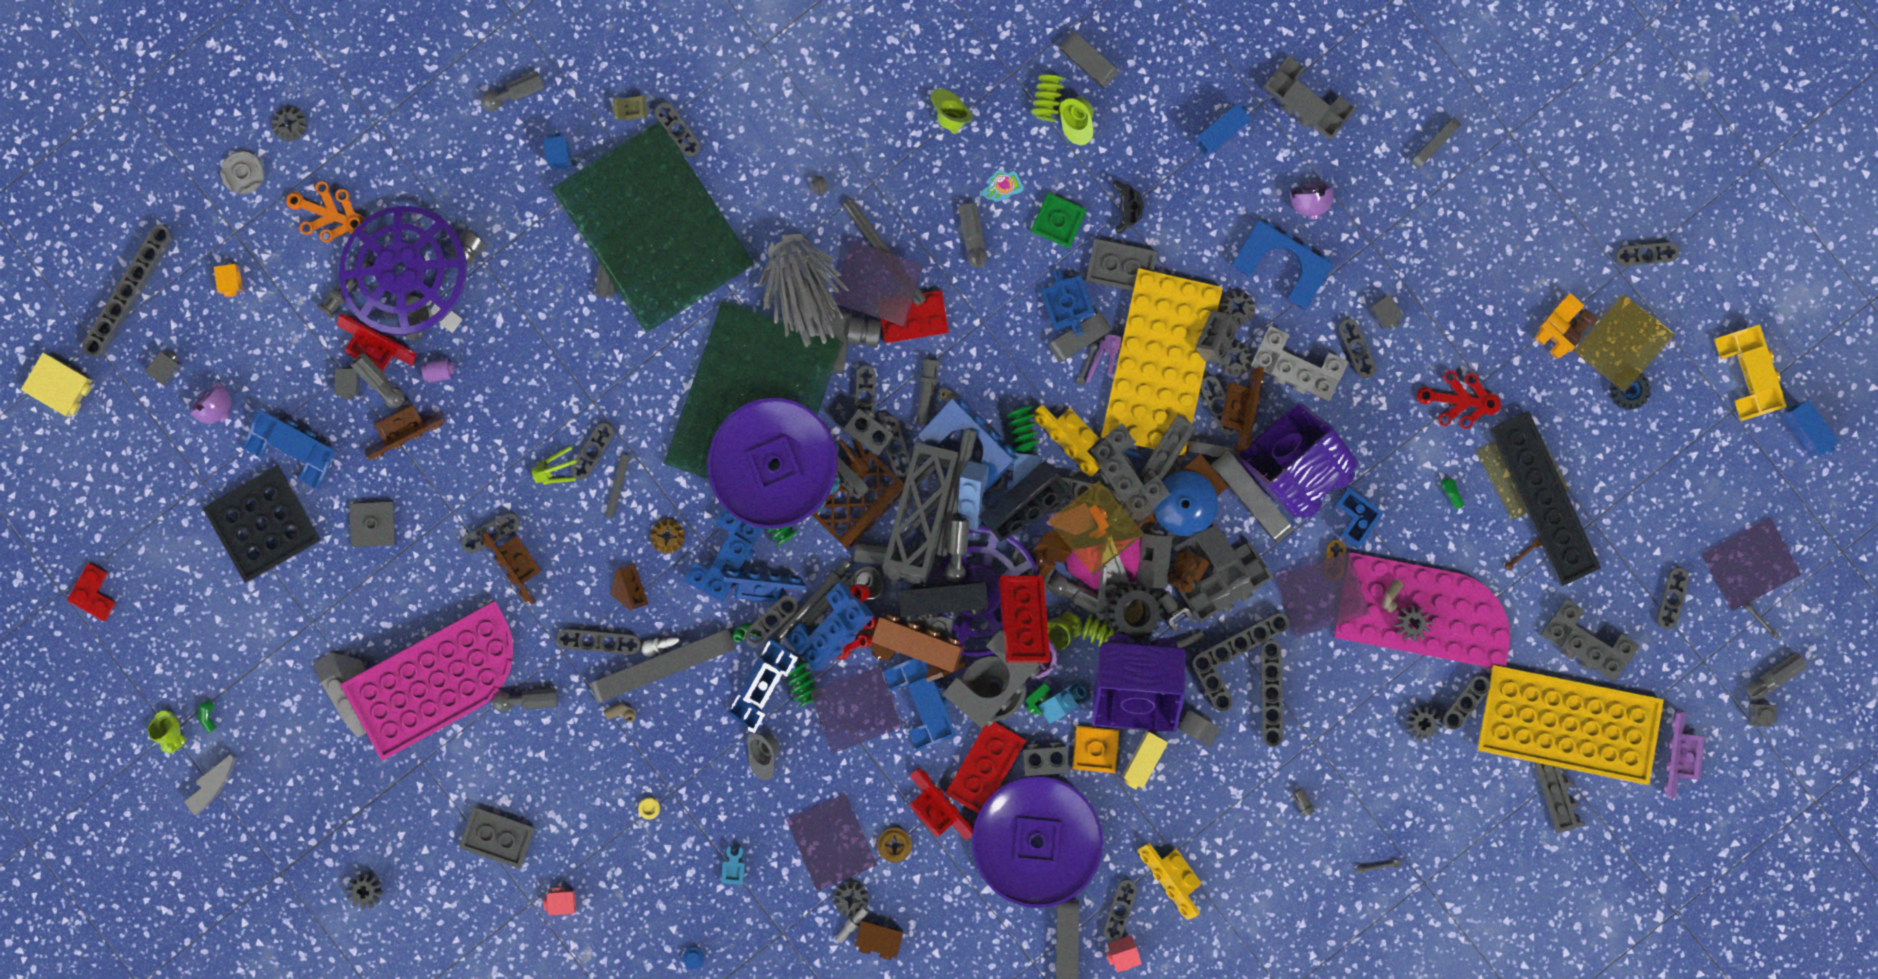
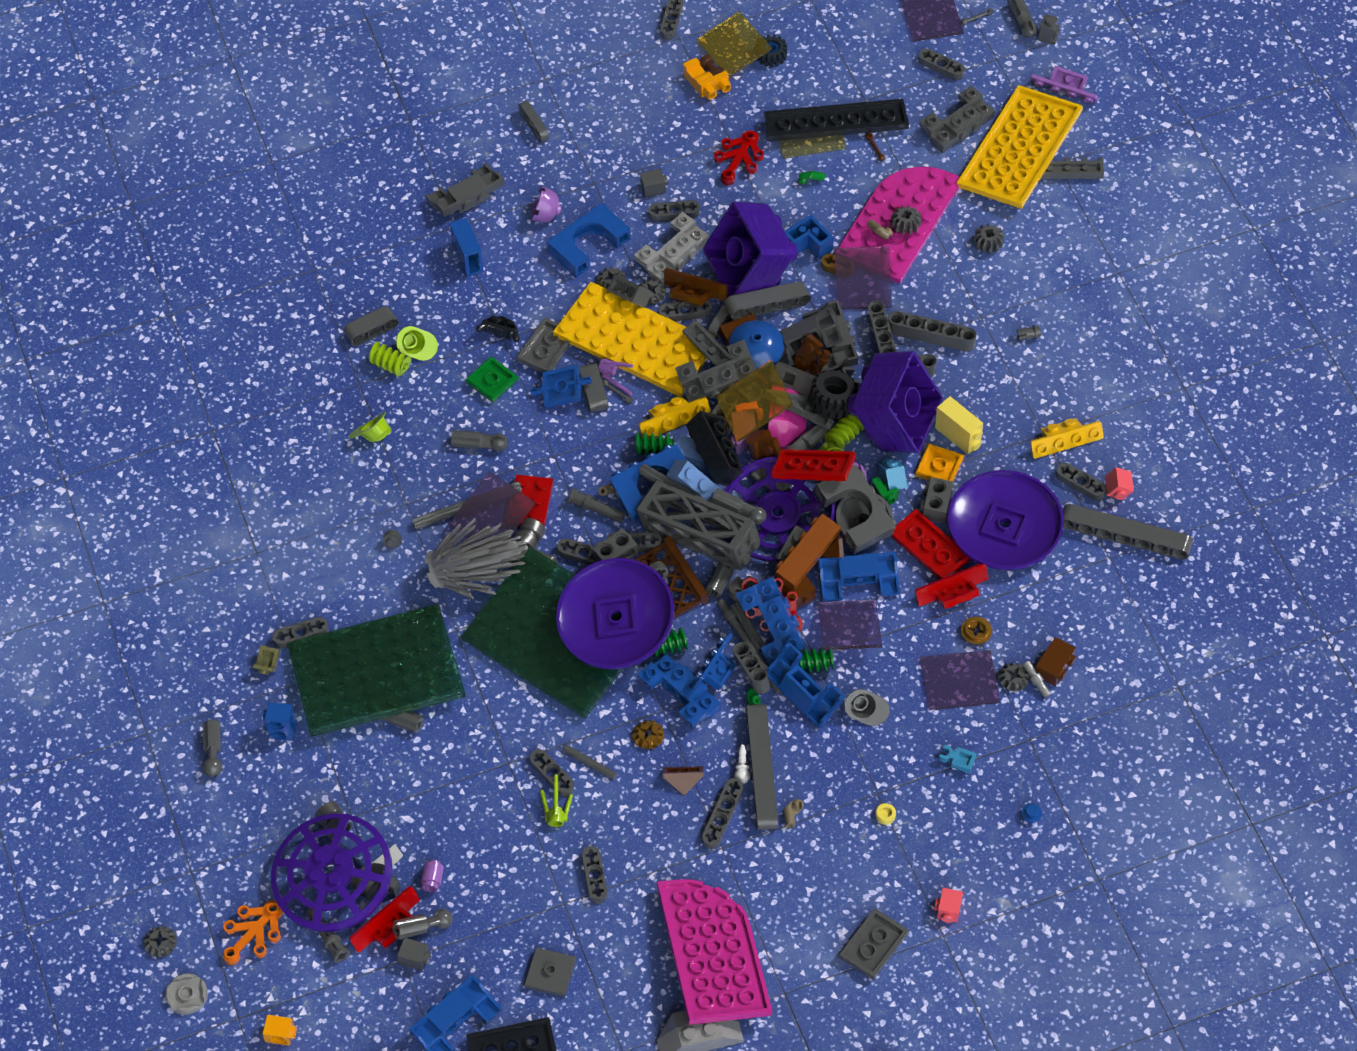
camera: 70 degrees left, 30 degrees down
(401, 427) = (472, 920): reddish brown bracket -> none
(516, 560) = (627, 856): reddish brown bracket -> none
(528, 700) = (756, 882): dark grey piece -> none
(942, 599) = (776, 528): black wedge -> none
(1002, 186) = (447, 413): sticker -> none
(1197, 727) = (947, 382): dark grey brick -> none
(1395, 863) = (1097, 286): dark grey hinge -> none
(1475, 698) = (980, 206): dark grey beam -> none

